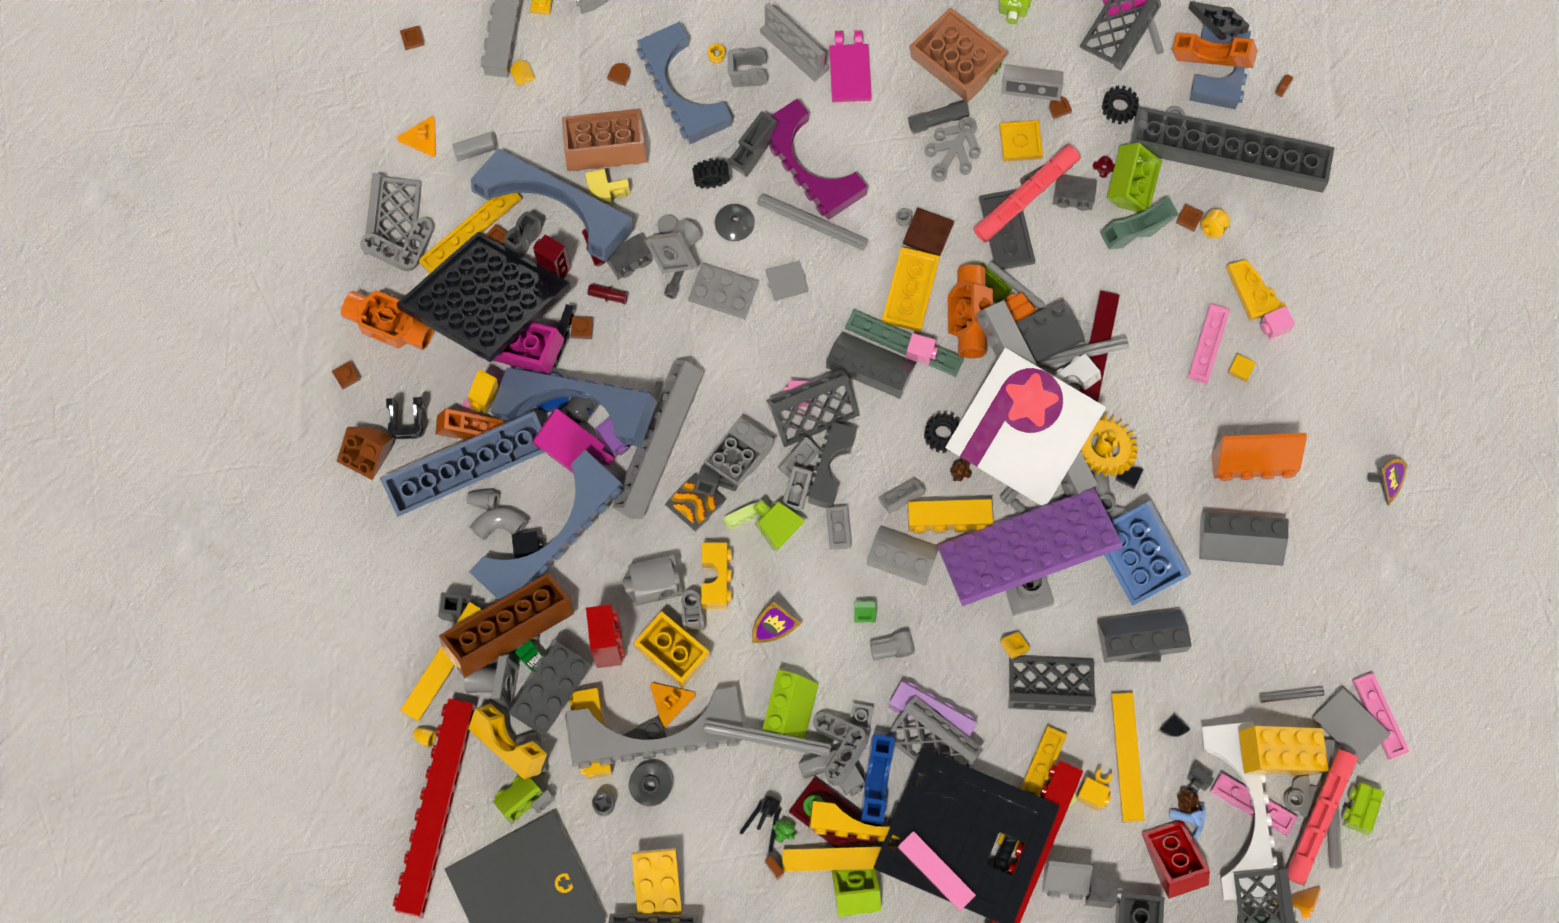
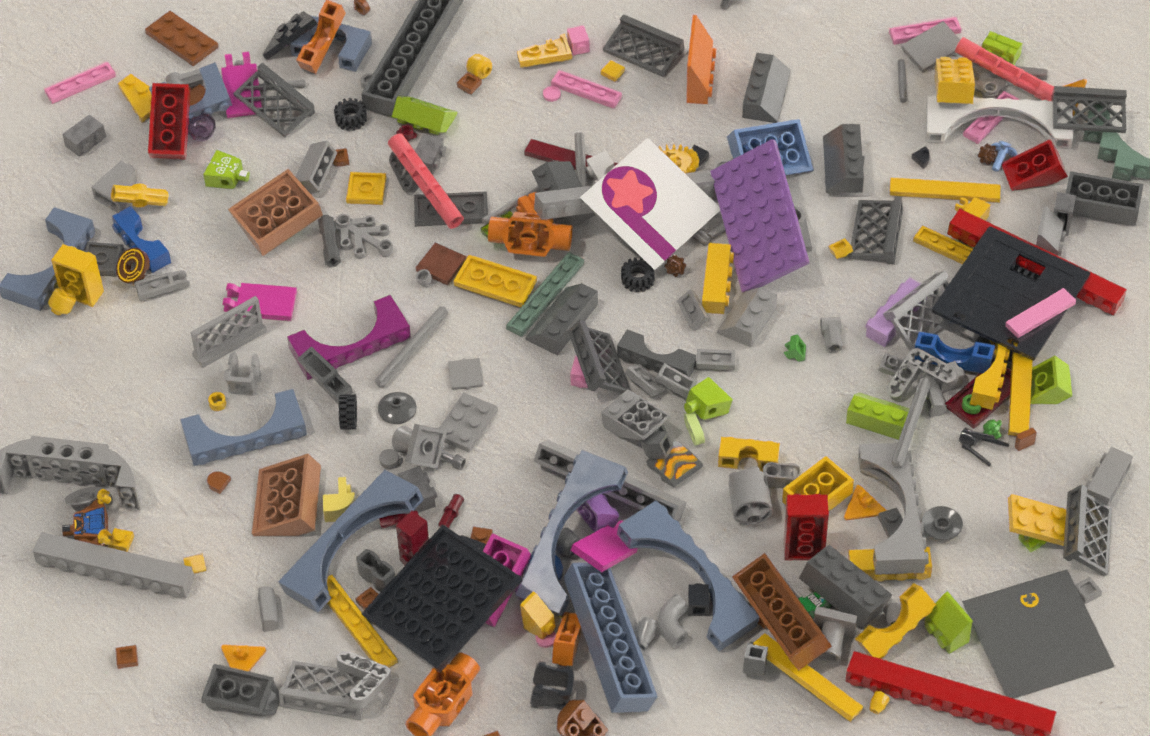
camera: 80 degrees left, 20 degrees down
(376, 141) = (240, 691): none -> dark grey slope
(602, 800) = (957, 561): flat silver wheel -> none
(773, 624) = (800, 414): shield -> none
(921, 349) = (558, 275): bright pink brick -> none
(1144, 224) = (470, 110): sand green arch -> none
(1195, 308) = (551, 93): none -> bright pink piece
(1200, 780) = (969, 144): dark grey tile -> none
(1302, 397) = (653, 35): none -> dark grey fence

